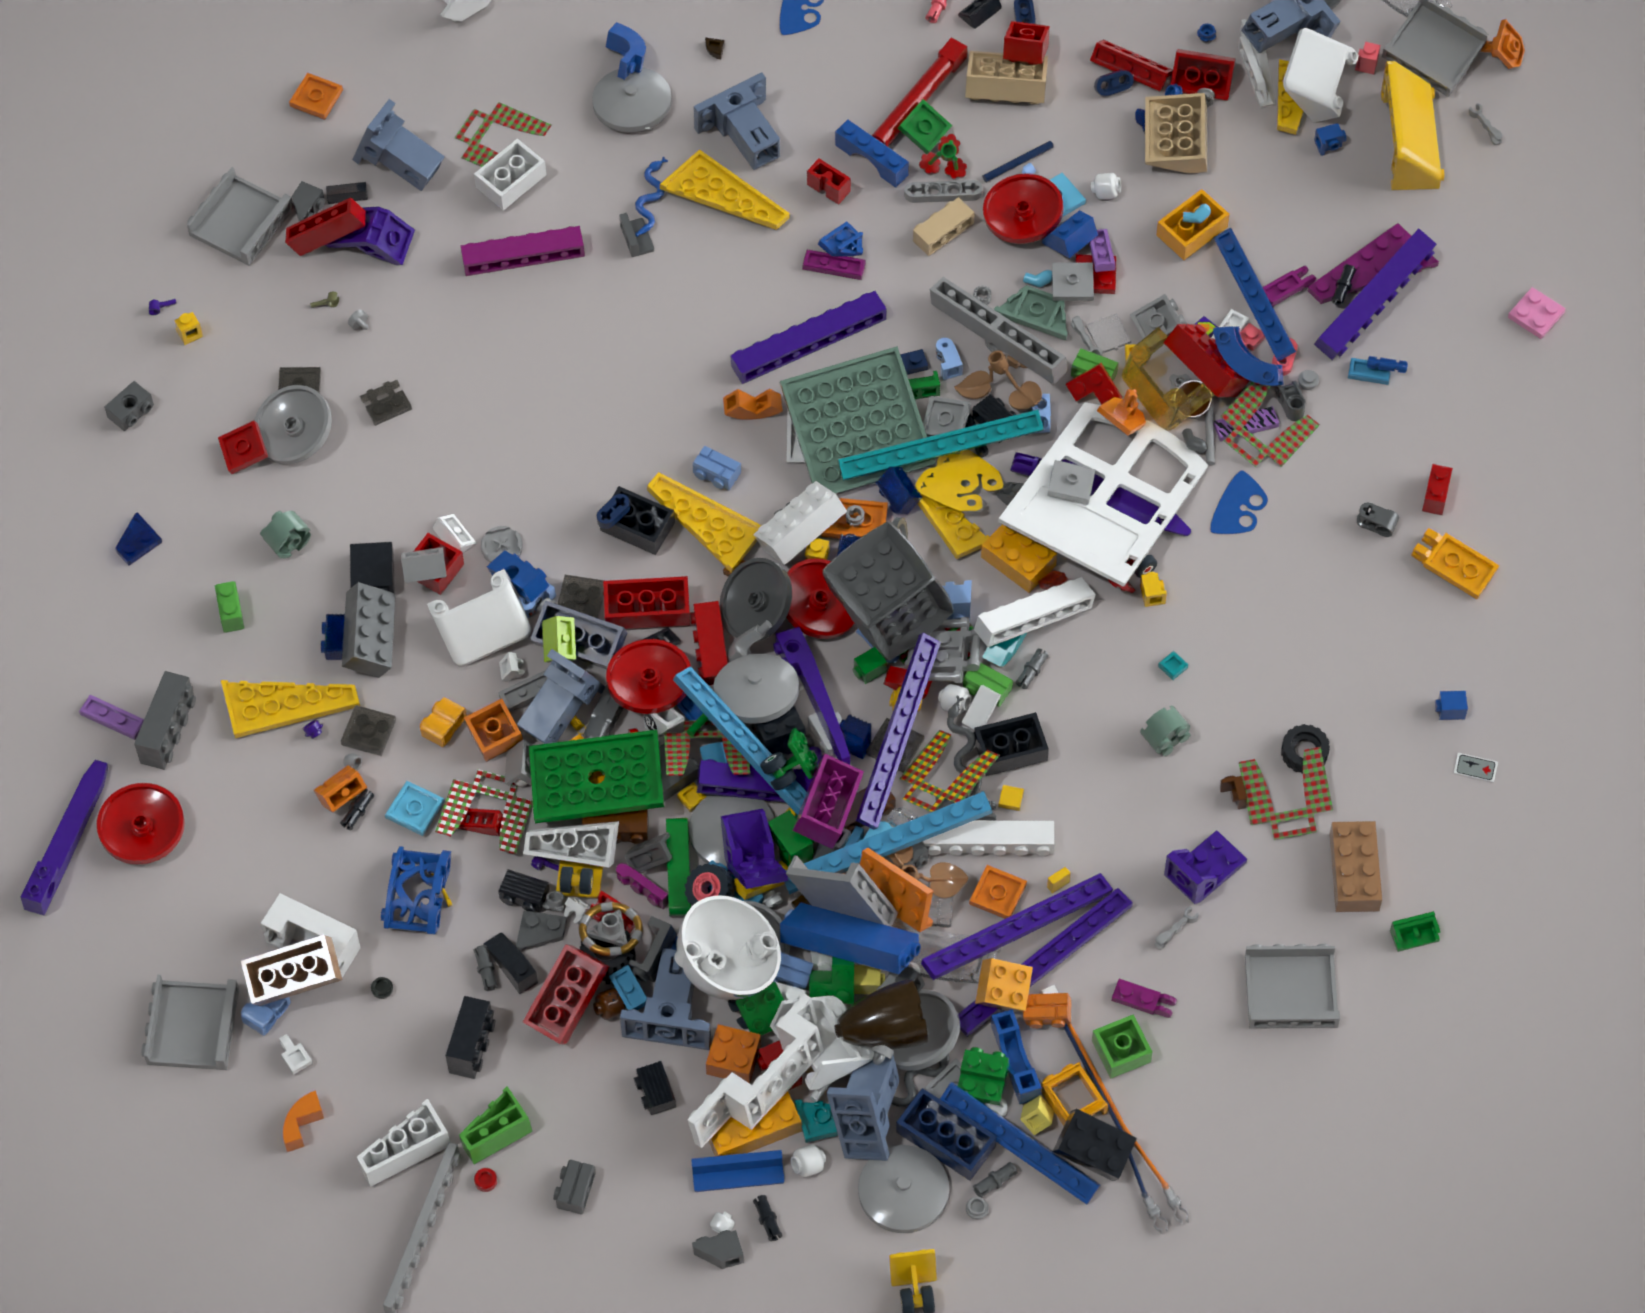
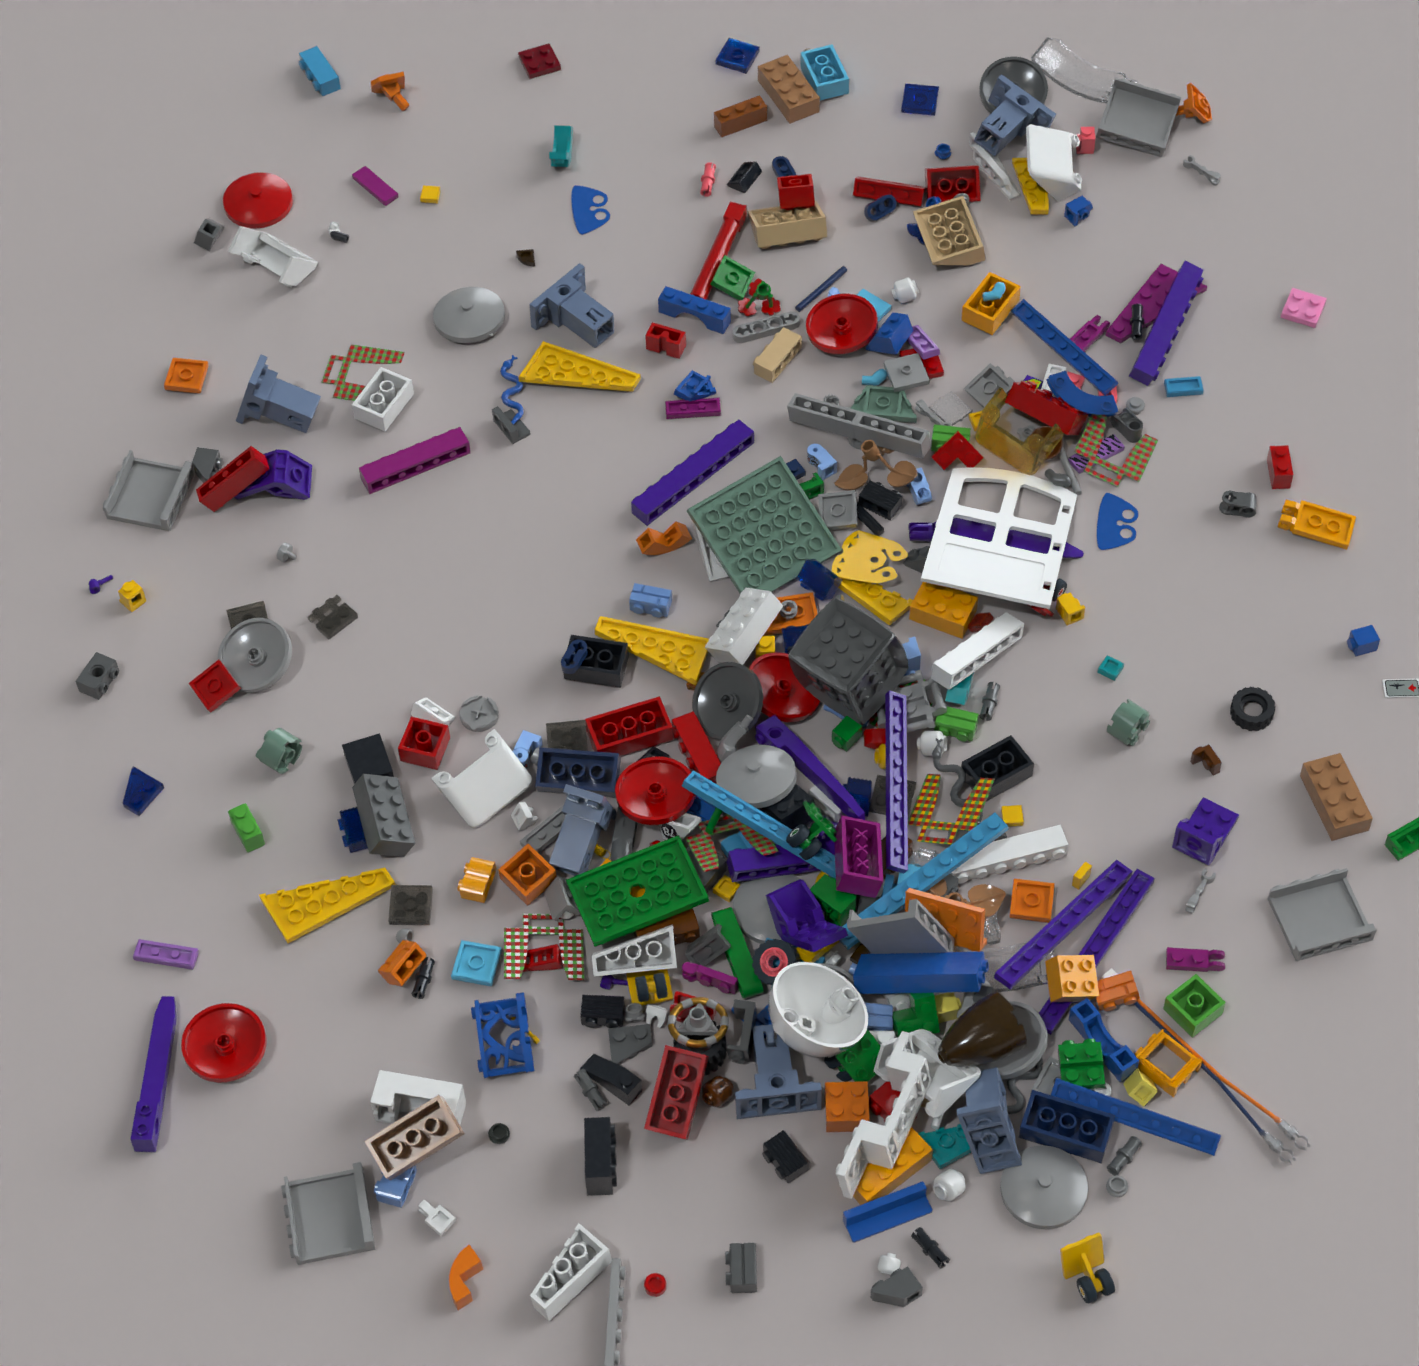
camera: 15 degrees left, 5 degrees down
(165, 720) = (218, 943): dark grey brick -> none
(313, 729) = (358, 916): dark purple plate -> none
(332, 300) = (256, 542): olive hand -> none
(341, 192) = (233, 450): black slope -> none
(423, 565) = (417, 744): light grey panel -> none
(495, 1128) = (651, 1233): bright green wedge -> none
(524, 577) = (516, 734): blue arch -> none
(559, 636) = (558, 774): lime panel -> none
(629, 988) = (732, 1072): dark azure plate -> none
(630, 45) = (451, 270): blue arch -> none
(881, 1053) = (990, 1065): light grey tile -> none
(940, 445) = (843, 531): teal plate -> none
(981, 707) = (959, 744): white tile -> none
(1071, 482) = (970, 534): light grey plate -> none
(1094, 1144) = (1205, 1099): black brick -> none
(1124, 412) = (992, 467): orange piece -> none
(1315, 791) = (1276, 741): piece -> none
(1387, 364) = (1198, 376): blue axle -> none
(1413, 129) = (1158, 208): yellow windscreen -> none

